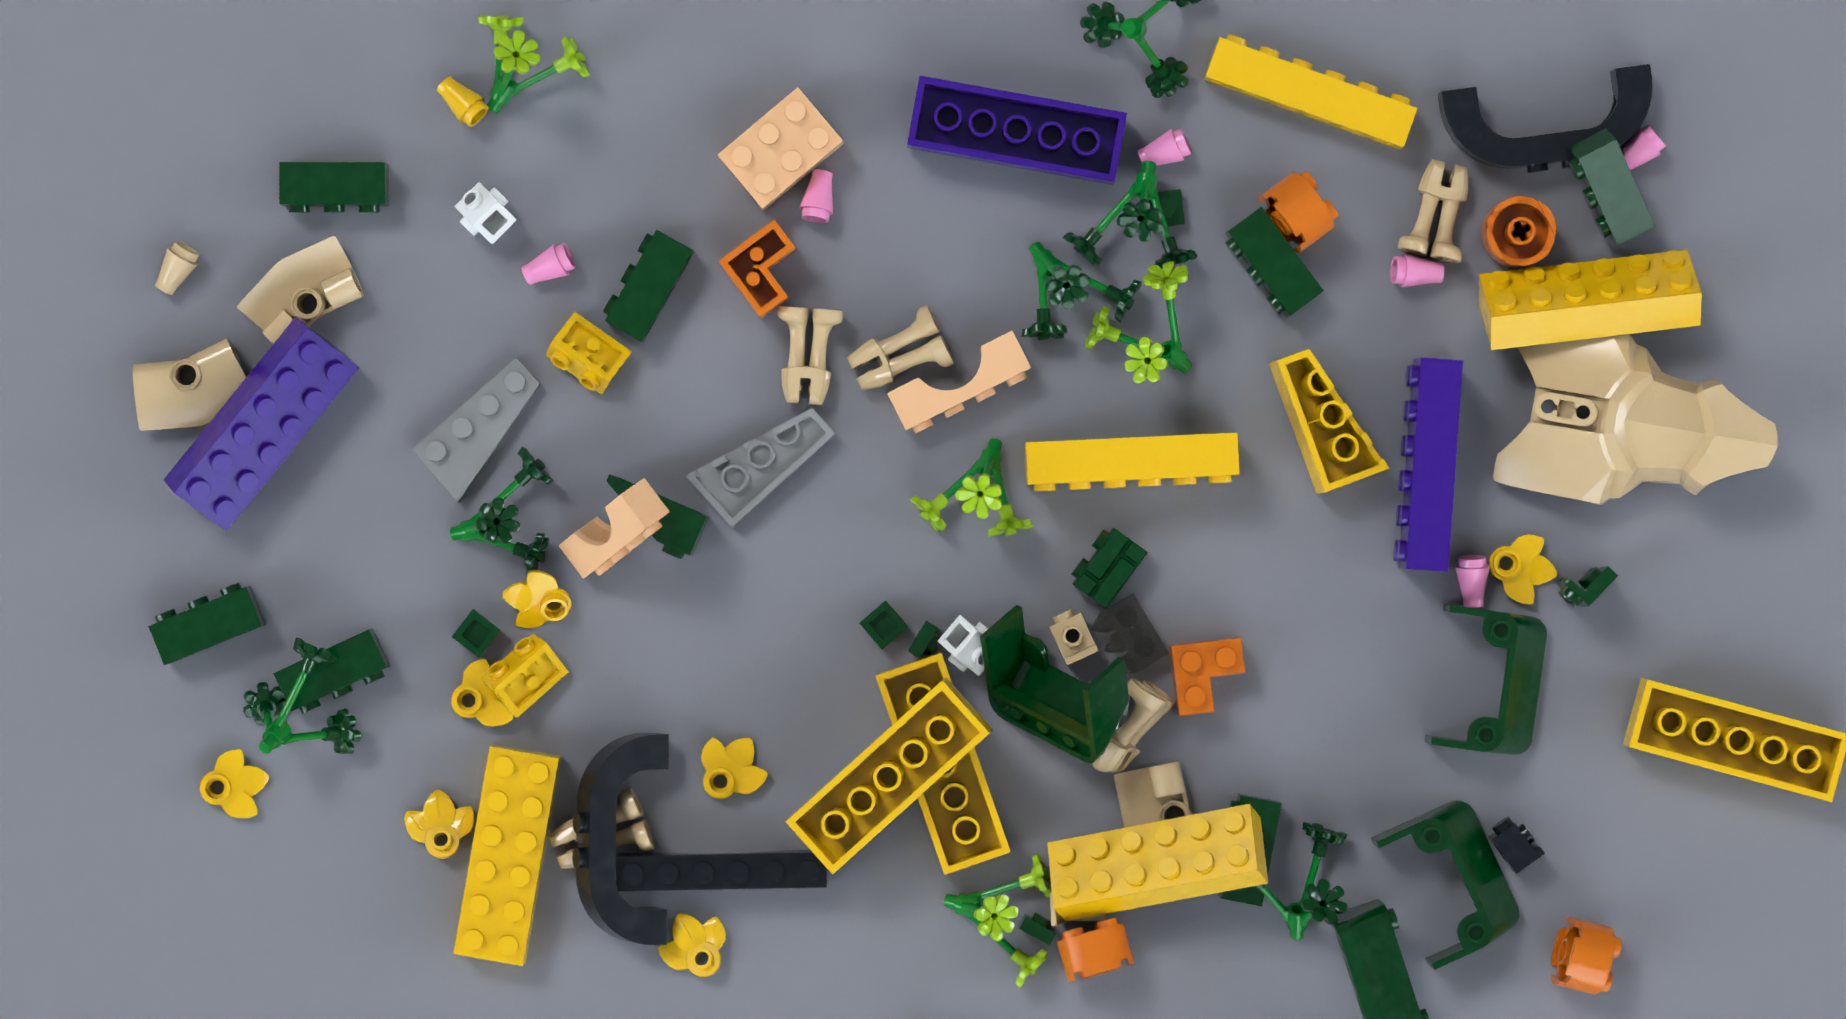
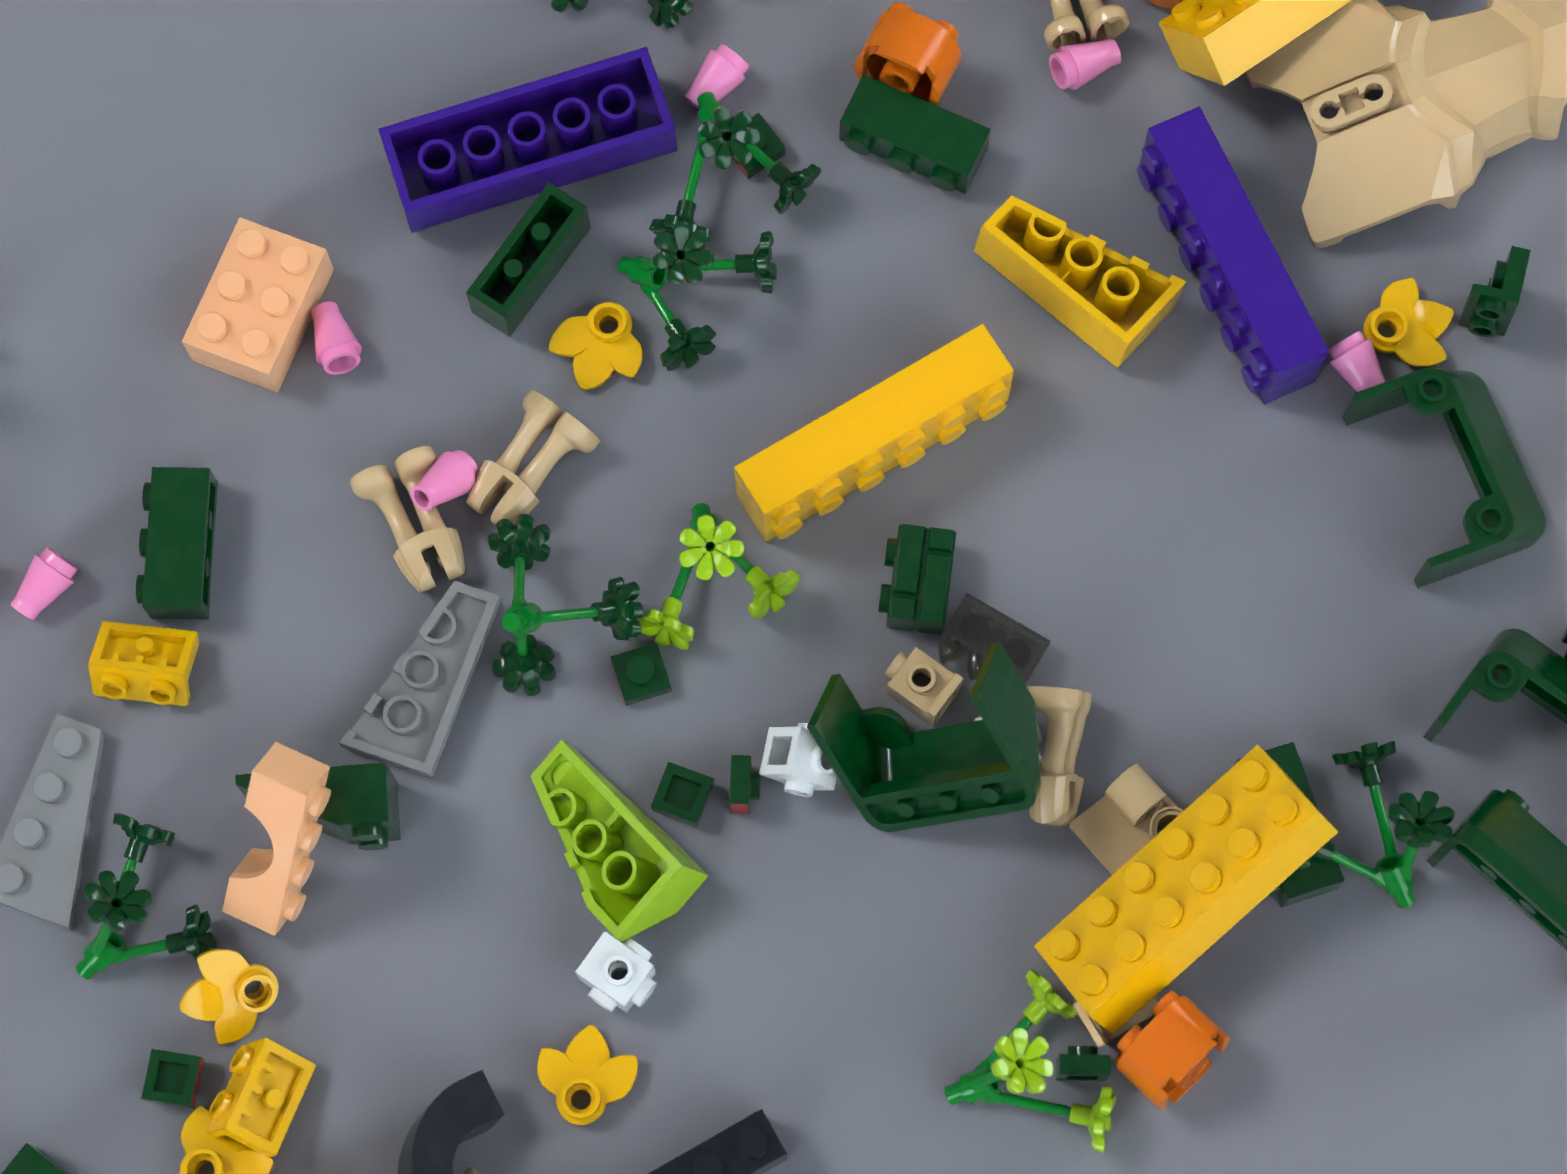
camera: 30 degrees left, 15 degrees down
(750, 266) = (293, 451): orange brick -> none
(785, 705) = (613, 956): none -> white brick
(824, 643) = (621, 856): none -> lime wedge
(839, 475) = (524, 661): none -> dark green plant
(841, 338) = (447, 479): none -> bright pink cone
(889, 775) = (787, 957): yellow brick -> none
(899, 530) = (641, 673): none -> dark green plate
(959, 803) = (848, 919): yellow brick -> none
(972, 215) = (529, 259): none -> dark green brick
(984, 298) = (598, 352): none -> yellow plate
(1000, 362) = (583, 506): light nougat arch -> none
(1146, 356) = (826, 290): lime plant -> none
(1195, 664) = (1092, 639): orange brick -> none

